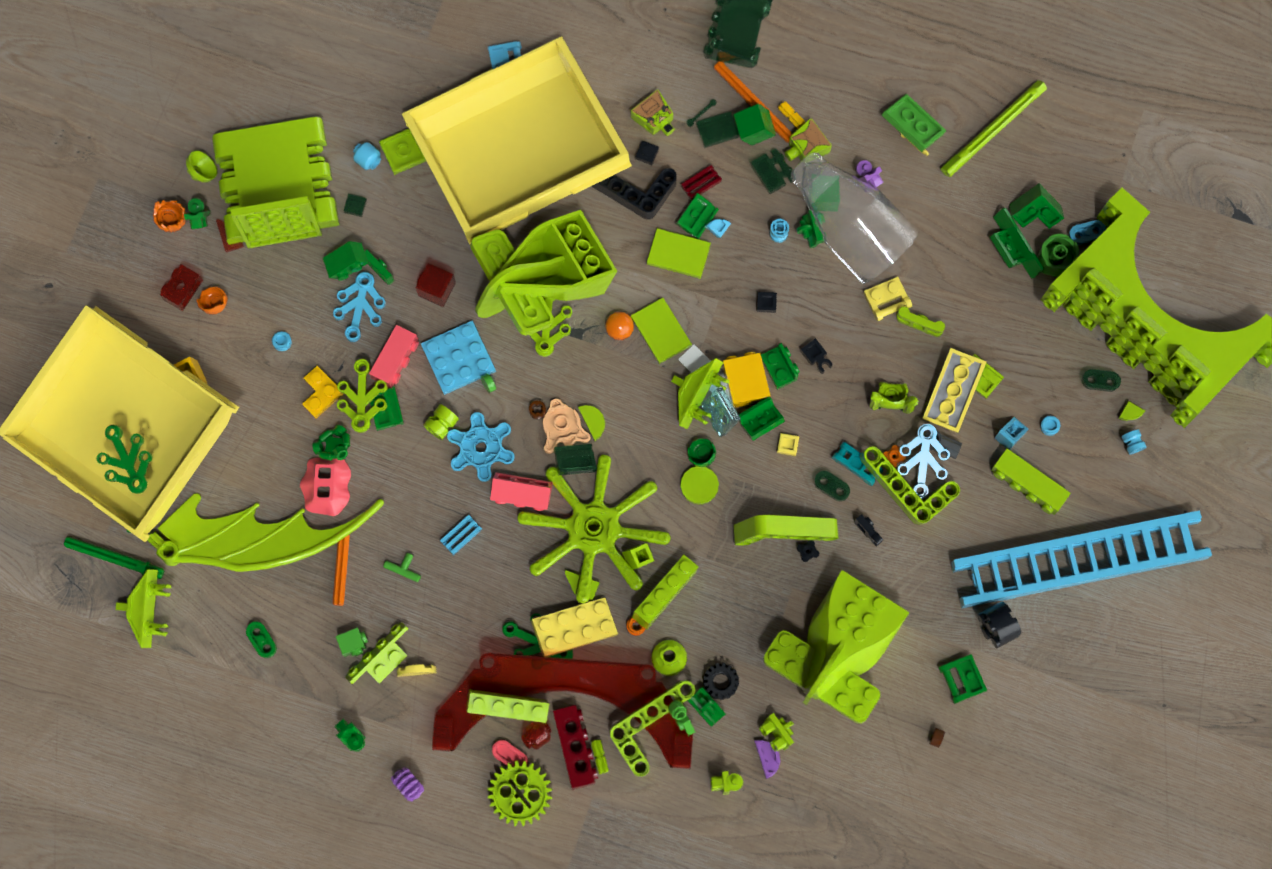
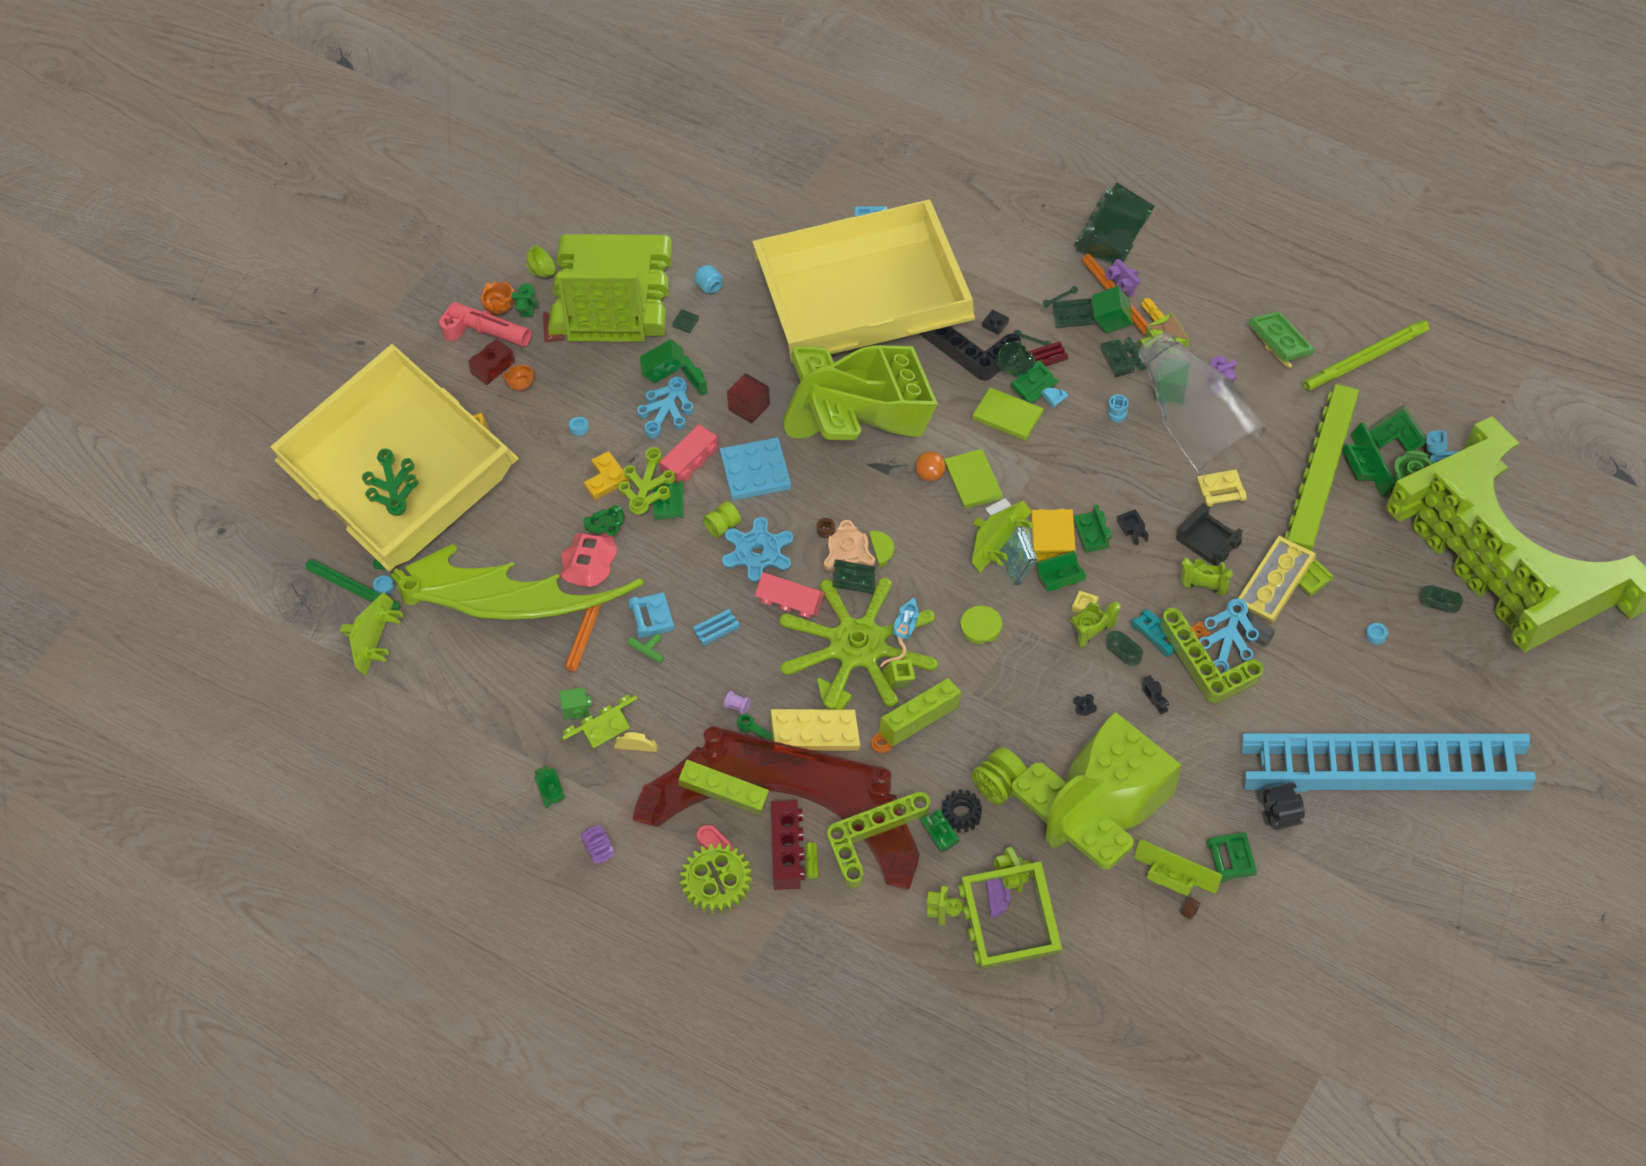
camera: 15 degrees right, 20 degrees down
(142, 550) = (383, 584): none -> medium azure tile
(163, 246) = (483, 322): none -> coral piece
(261, 640) = (481, 687): green plate -> none
(402, 151) = (746, 282): lime plate -> none
(405, 531) = (658, 614): none -> medium azure plate
(488, 383) = (780, 494): bright green tile -> none
(498, 612) = (737, 702): none -> lavender bush
(536, 735) = (748, 825): clear red head -> none
(546, 332) = (855, 453): lime plant -> none
(634, 509) = (904, 626): none -> medium azure animal
(654, 114) = (1009, 288): torso -> none
(669, 668) = (904, 786): lime piece -> none
(670, 162) = (1018, 332): none -> clear green hinge
(676, 200) = (1015, 359): none -> clear green hair
(678, 712) = (910, 836): bright green plate -> none
(702, 452) = (990, 592): green hair -> none
(748, 646) = (997, 774): none -> lime wheel
(751, 788) = (1045, 906): none -> lime window
(757, 82) = (1123, 276): none -> medium lavender hips
(766, 302) = (1090, 470): black plate -> none
(784, 527) = (1065, 669): lime beam -> none
(803, 464) = (1093, 621): none -> lime hair
(810, 230) = (1151, 412): green hips -> none
(886, 353) = (1208, 536): none -> pearl dark grey panel
(916, 705) = (1175, 871): none -> lime bracket
(920, 322) = (1252, 513): lime plate -> none
(976, 261) = (1323, 466): none -> lime brick
(1011, 433) = (1330, 632): medium azure slope -> none
(1030, 482) = (1344, 680): lime brick -> none
(1073, 215) = (1437, 442): none -> medium azure plate
(1131, 412) = (1469, 635): lime tile -> none
(1134, 442) = (1467, 661): medium azure wheel -> none

